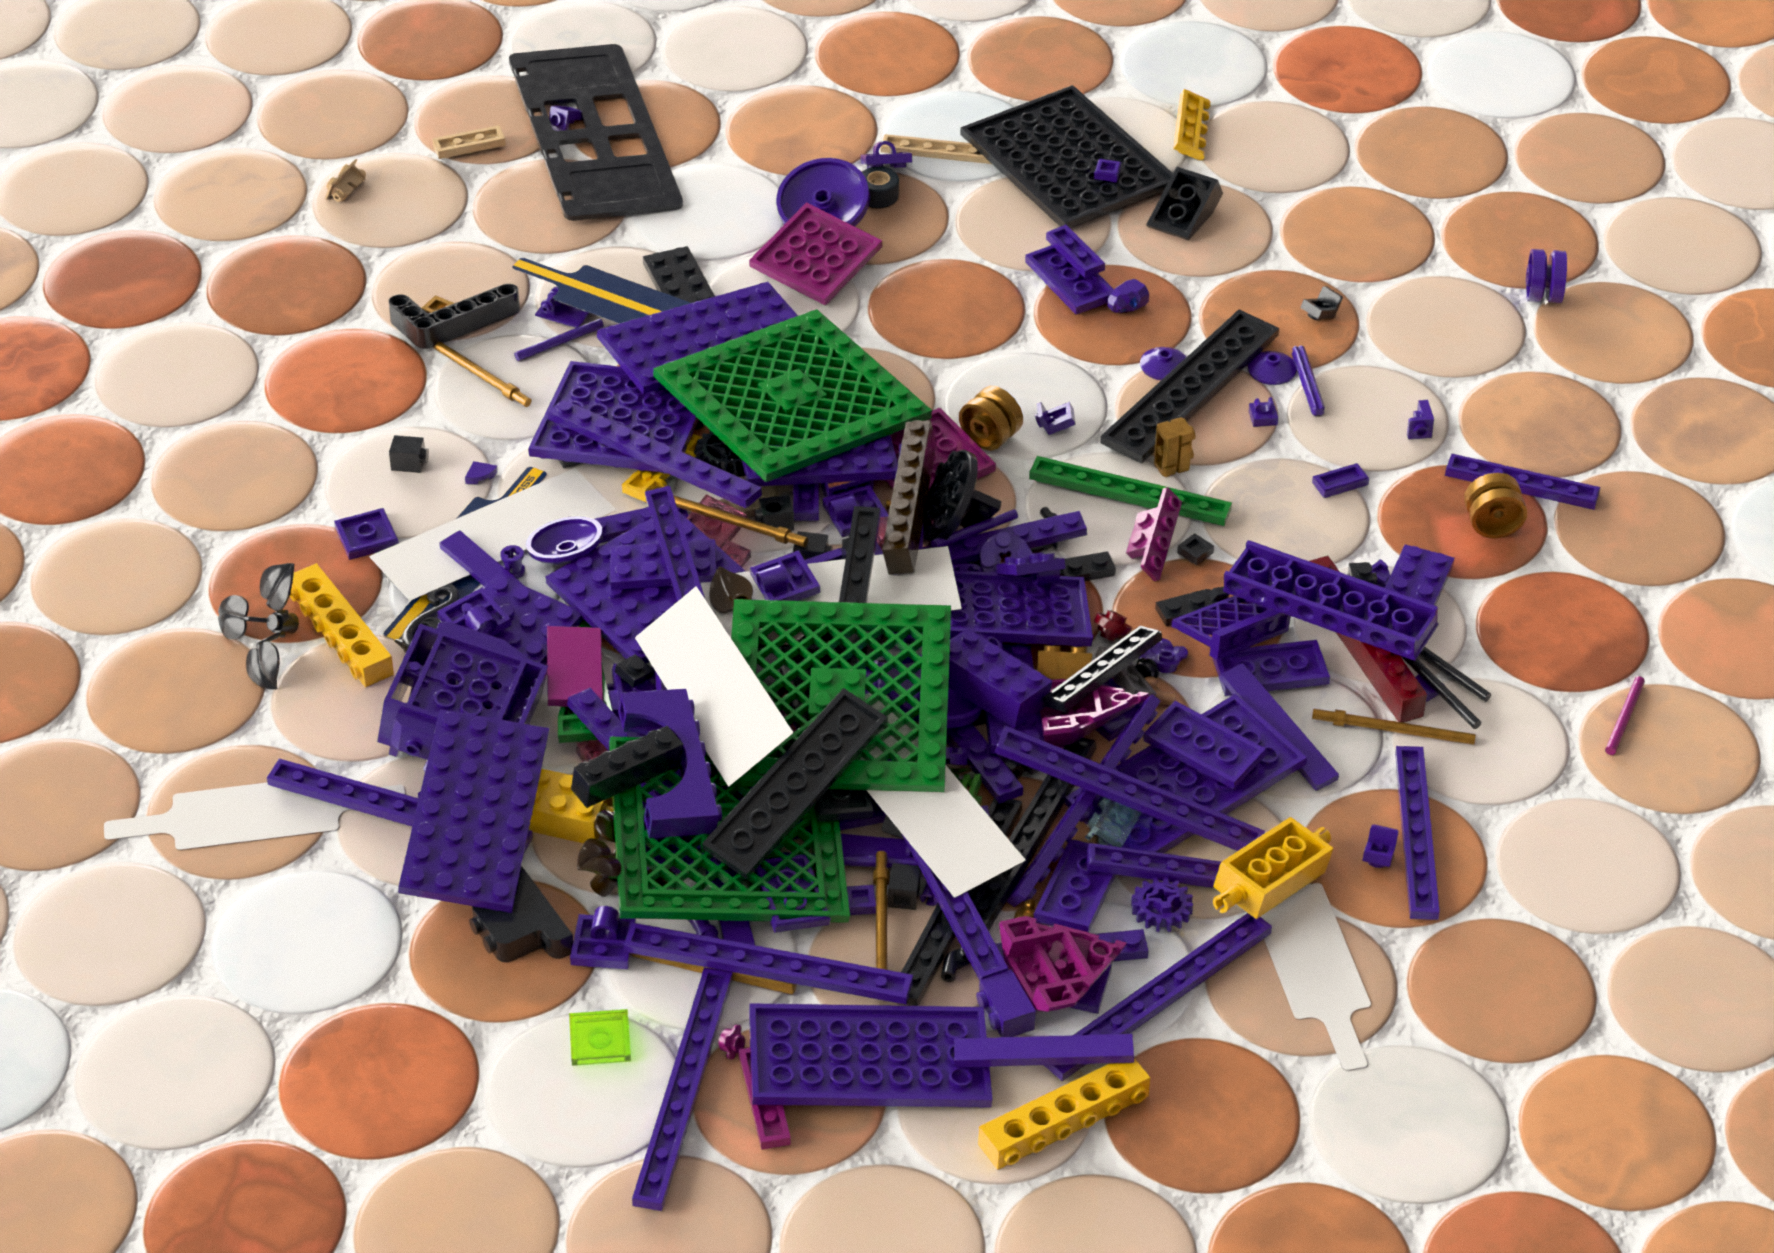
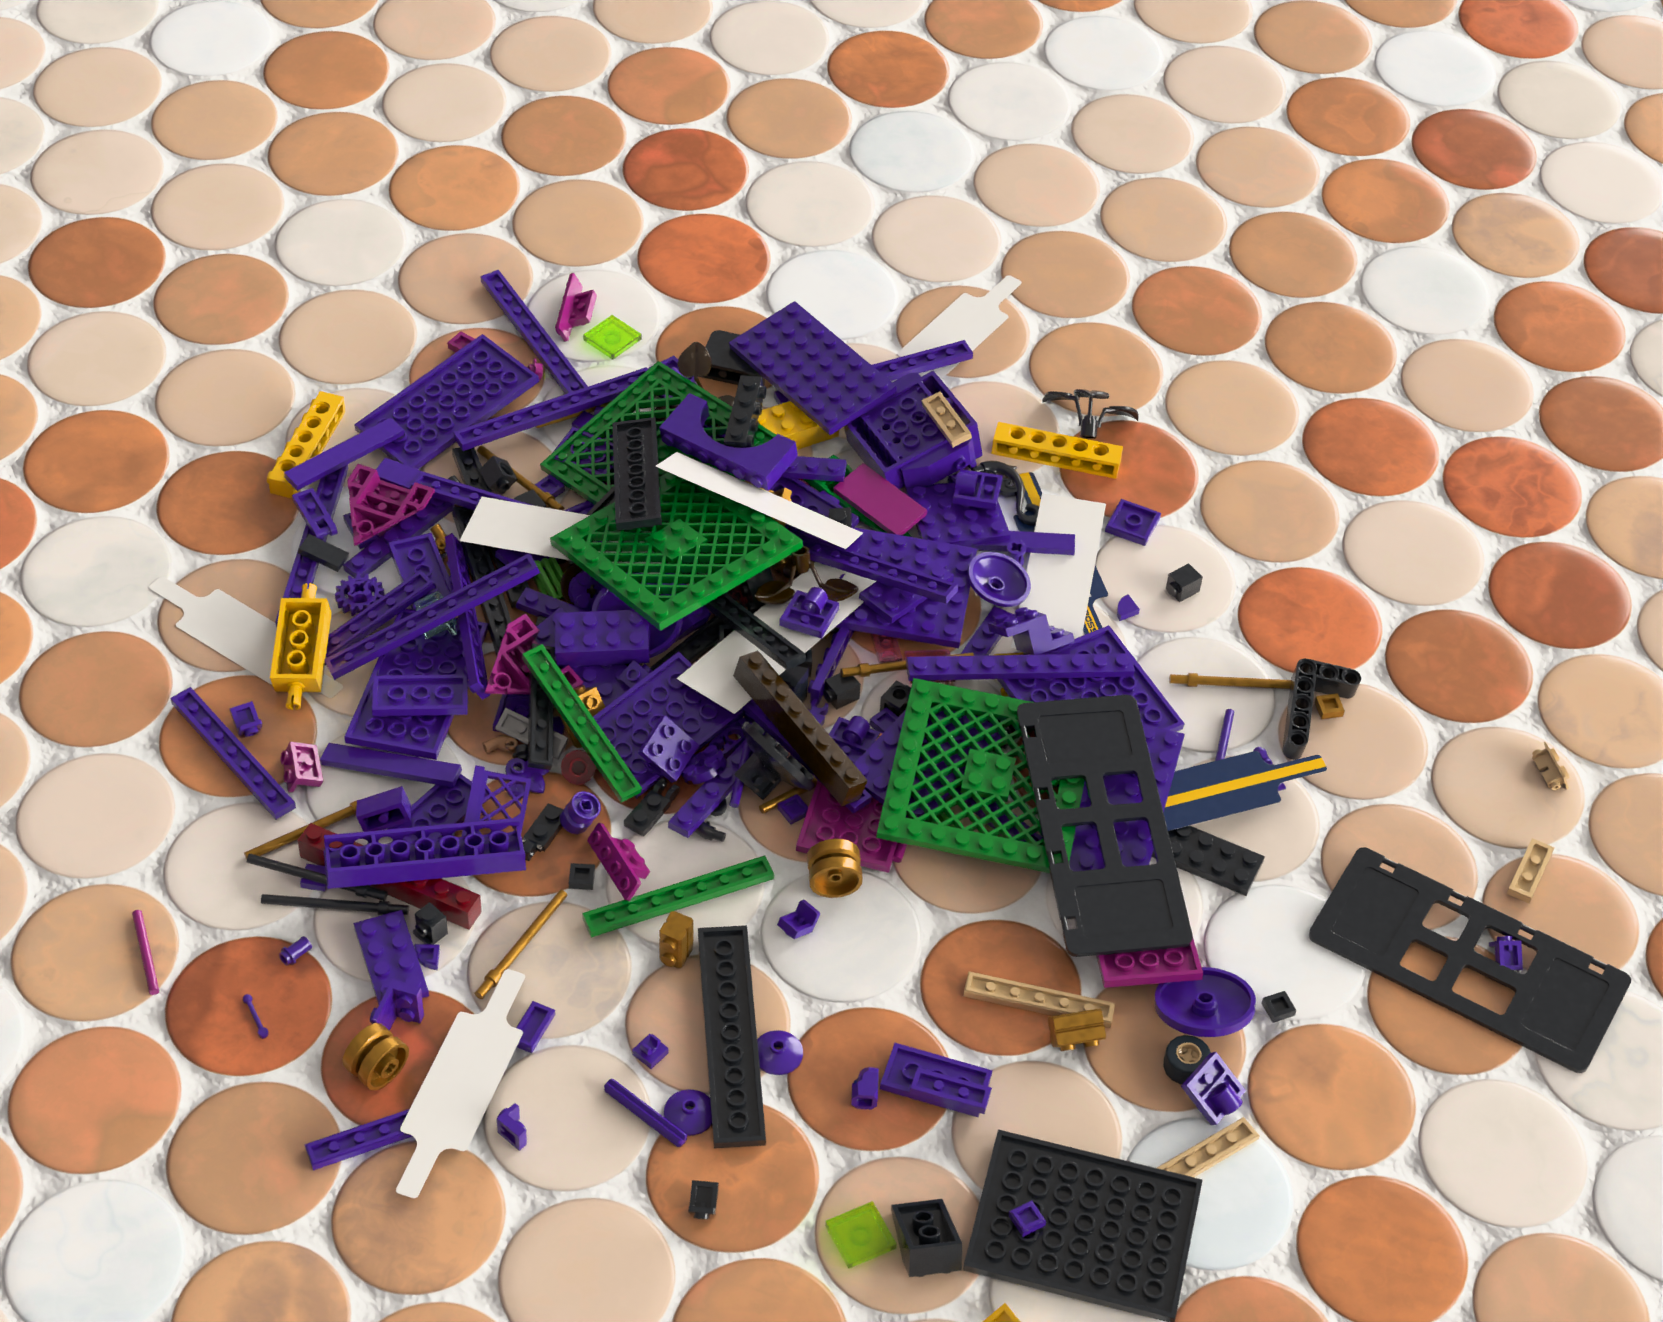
camera: 135 degrees right, 5 degrees up
(444, 640) = (946, 419): none -> tan plate
(597, 1088) = (575, 307): none -> magenta bracket
(605, 473) = (1030, 631): none -> dark purple bracket
(706, 356) = (1117, 905): none -> black door
(769, 178) = (1278, 1006): none -> black plate
(902, 934) = (498, 474): none -> black brick
(931, 281) = (1032, 997): none -> tan tile
(933, 239) = (1077, 1028): none -> pearl gold brick
(1085, 626) = (581, 723): none -> green plate
(1136, 1004) = (314, 513): none -> dark purple plate
(1152, 579) = (580, 812): none -> dark purple wheel
(1163, 961) = (323, 553): none -> black tile
(1226, 237) = (860, 1234): none -> clear neon green tile
(1324, 681) = (383, 810): none -> dark purple brick
(1339, 526) = (494, 975): none -> pearl gold bar
(1362, 778) = (301, 765): none -> magenta bracket
(1431, 471) = (461, 1082): none -> white sticker
(1454, 532) = (398, 1001): none -> dark purple bracket
(1493, 636) = (294, 951): none -> dark purple pin
(1566, 602) = (262, 1032): none -> dark purple hinge

